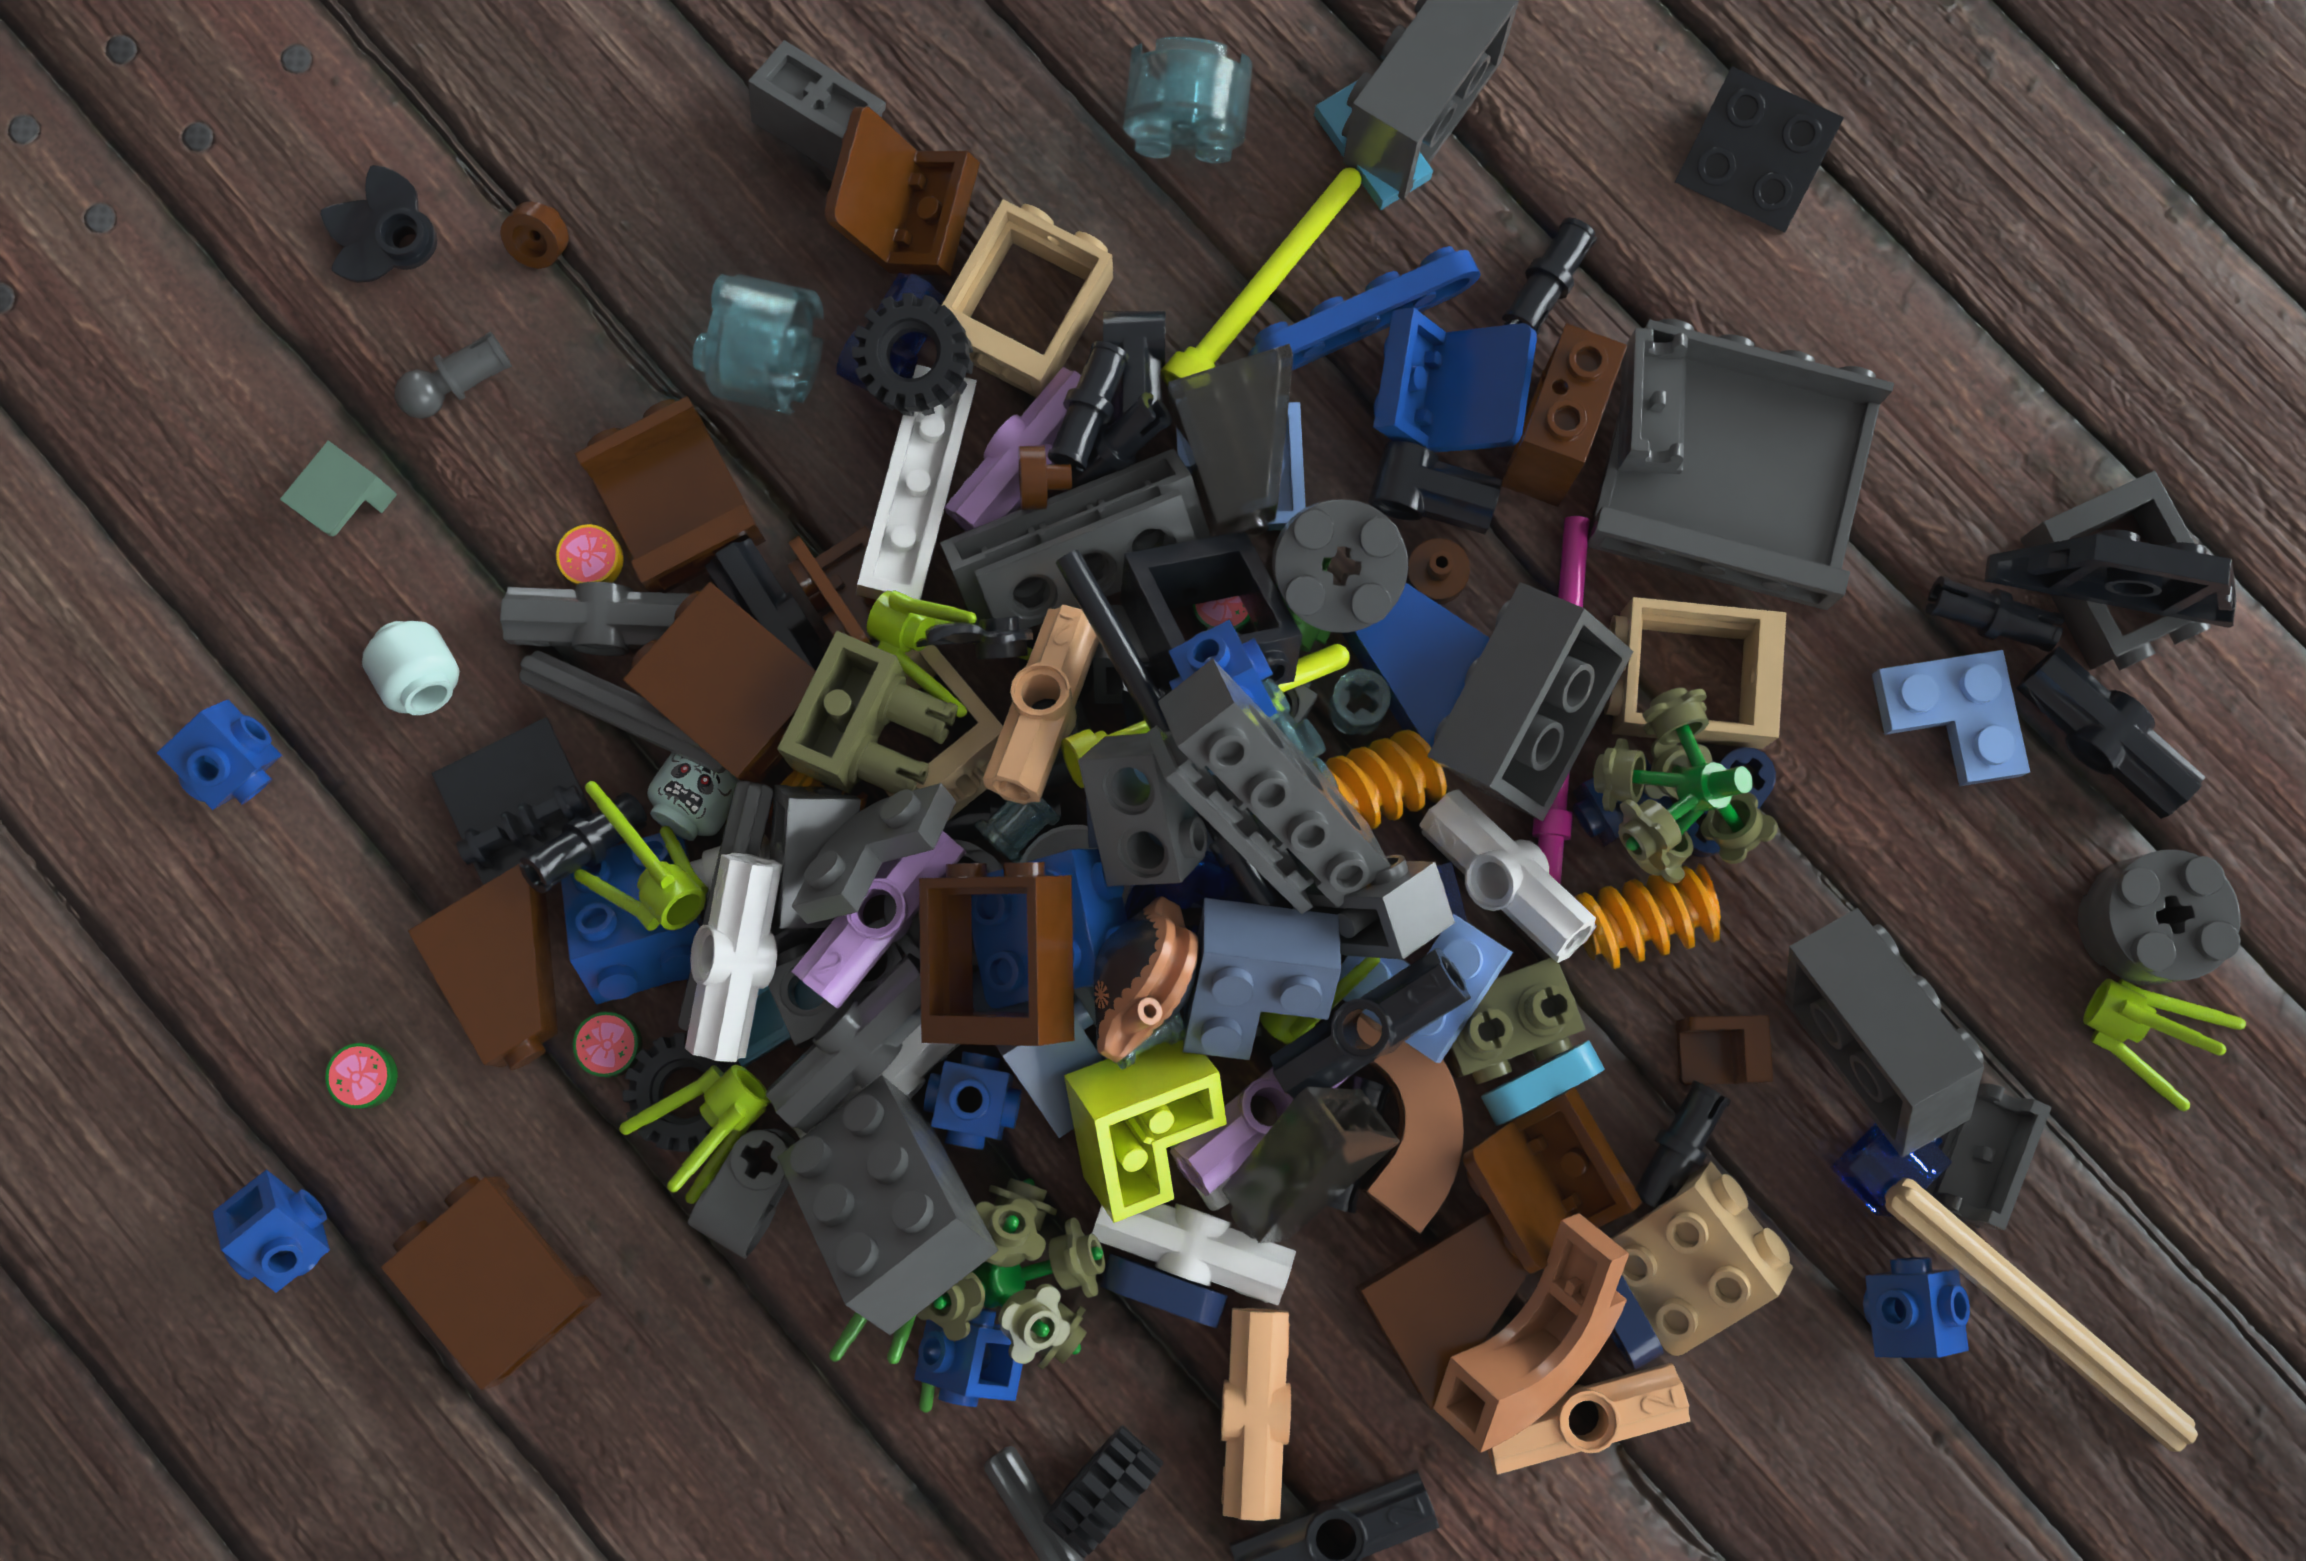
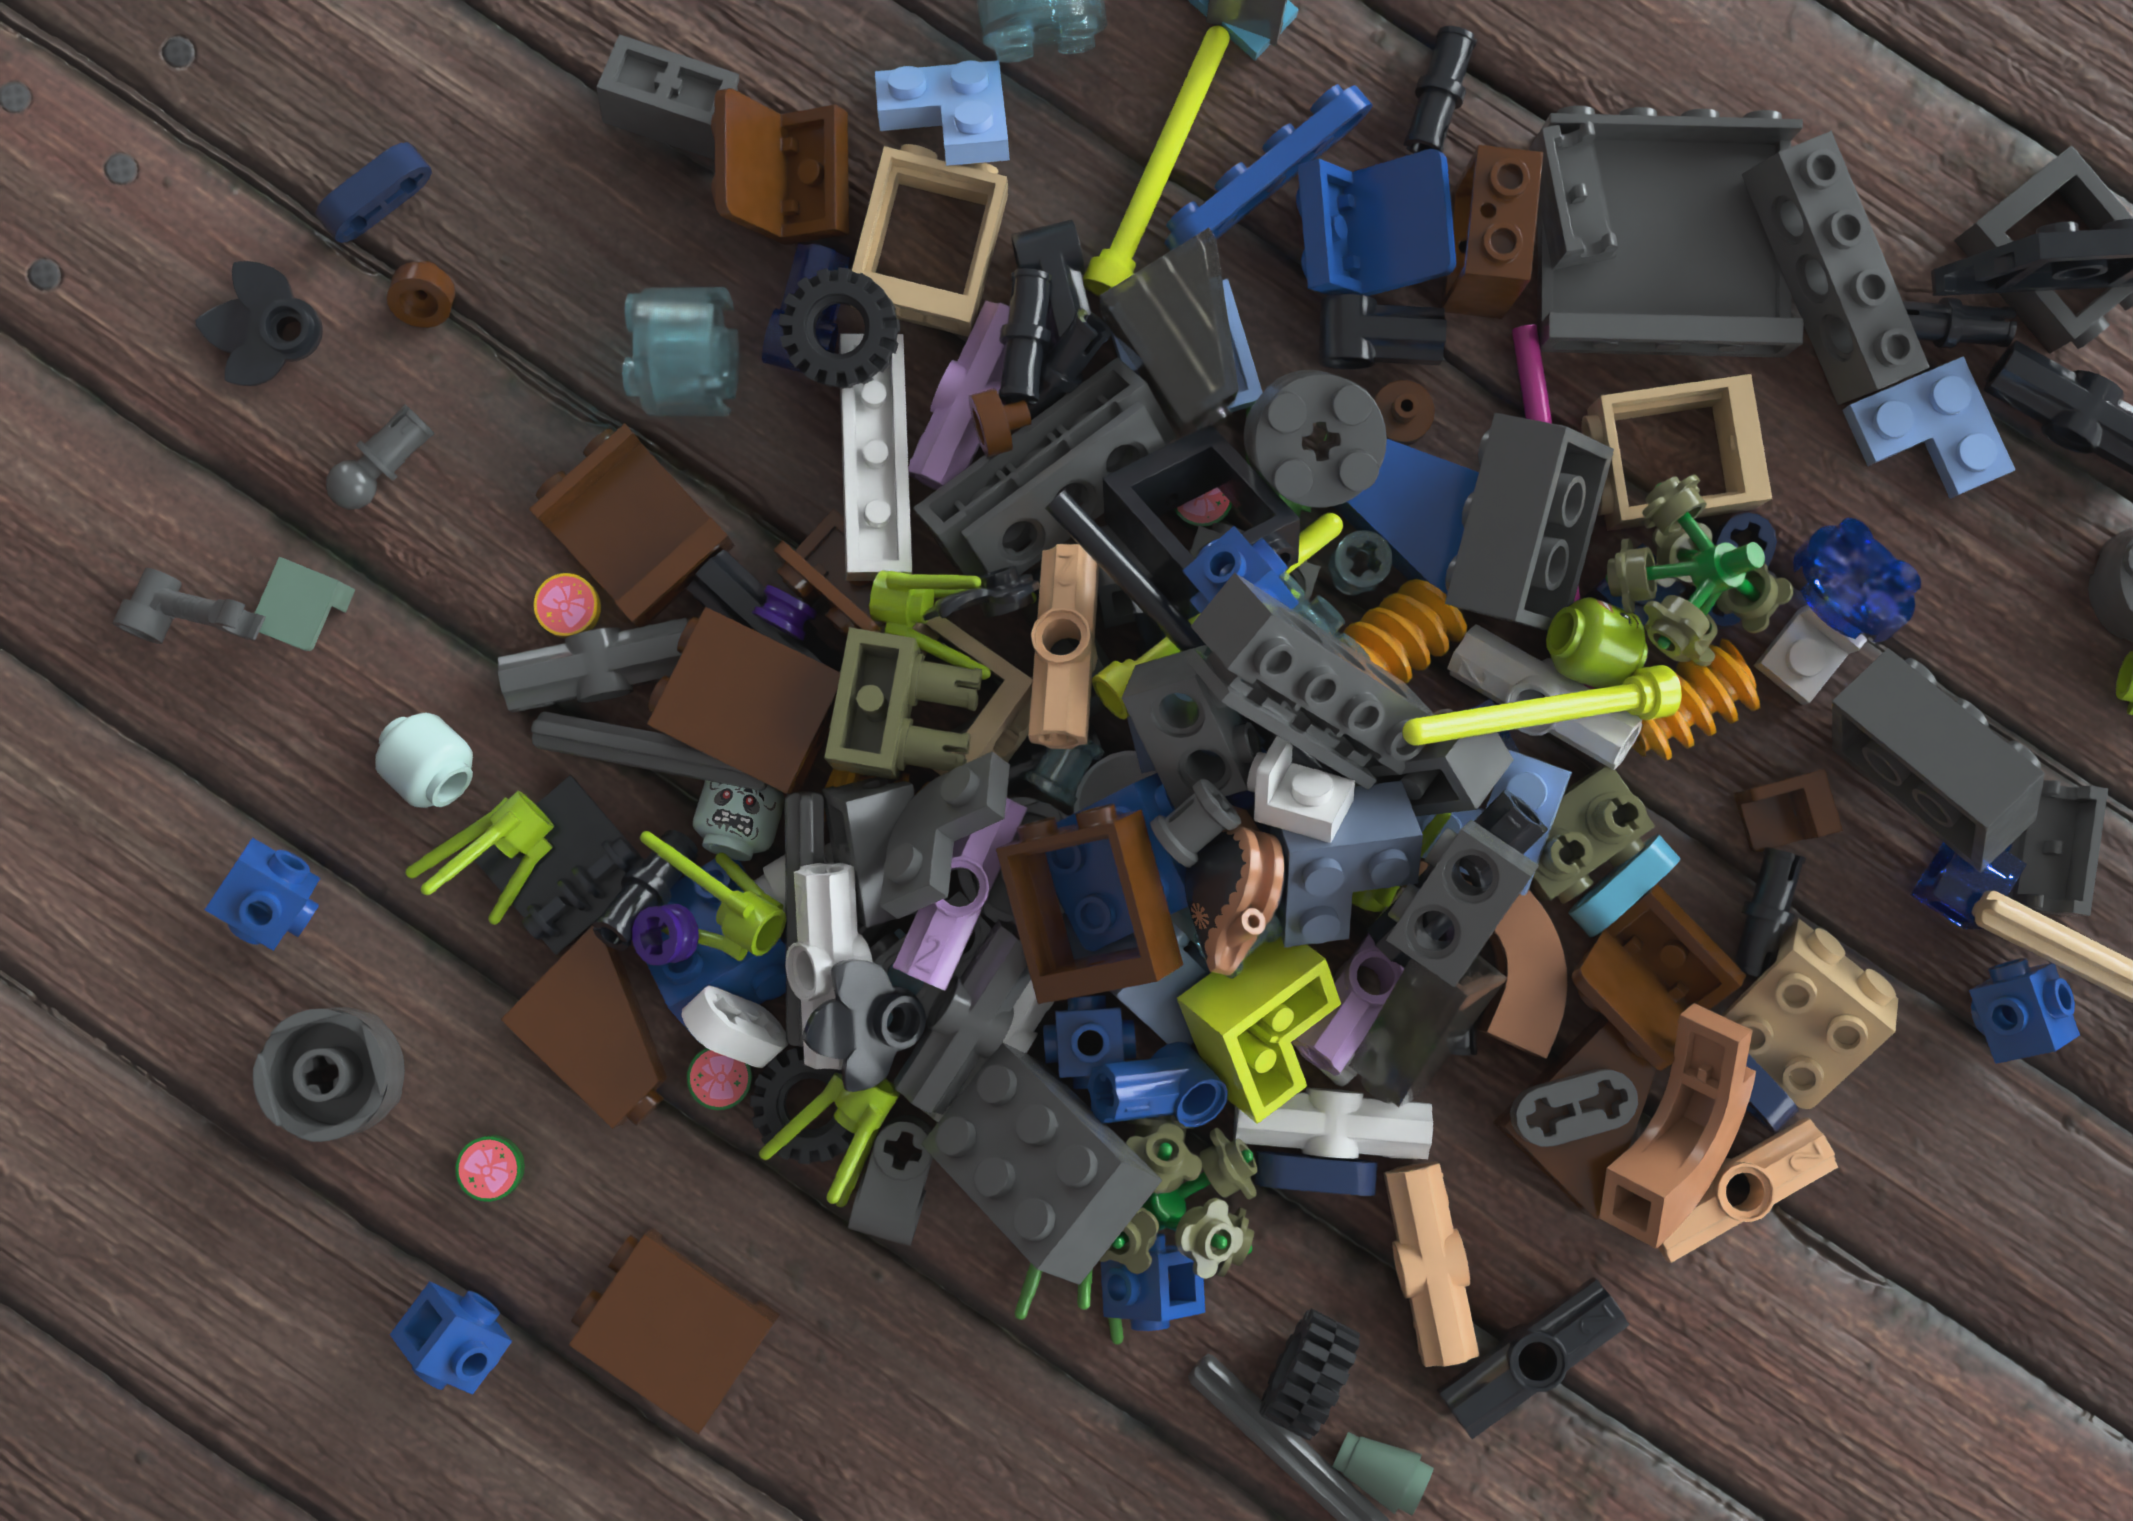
camera: 25 degrees left, 5 degrees up
(194, 933) = (291, 1080): none -> dark grey brick
(211, 456) = (159, 601): none -> dark grey brick
(473, 752) = (512, 827): none -> lime plant
(518, 132) = (373, 192): none -> dark blue beam
(600, 890) = (682, 934): none -> dark purple bush
(628, 995) = (734, 1027): none -> white beam
(741, 1016) = (856, 1023): none -> black plate
(787, 608) = (785, 612): none -> dark purple bush
(1034, 1161) = (1167, 1084): none -> blue piece
(1089, 178) = (958, 97): none -> light blue plate
(1119, 901) = (1195, 823): none -> dark grey bush
(1228, 901) = (1296, 795): none -> white bracket
(1372, 1058) = (1471, 908): none -> dark grey brick
(1435, 1305) = (1578, 1122): none -> dark grey beam
(1569, 834) = (1596, 643): none -> lime head
(1606, 893) = (1647, 694): none -> neon yellow piece
(1785, 897) = (1806, 655): none -> white bracket
(1844, 811) = (1884, 589): none -> clear blue plate
(1893, 532) = (1834, 268): none -> dark grey brick

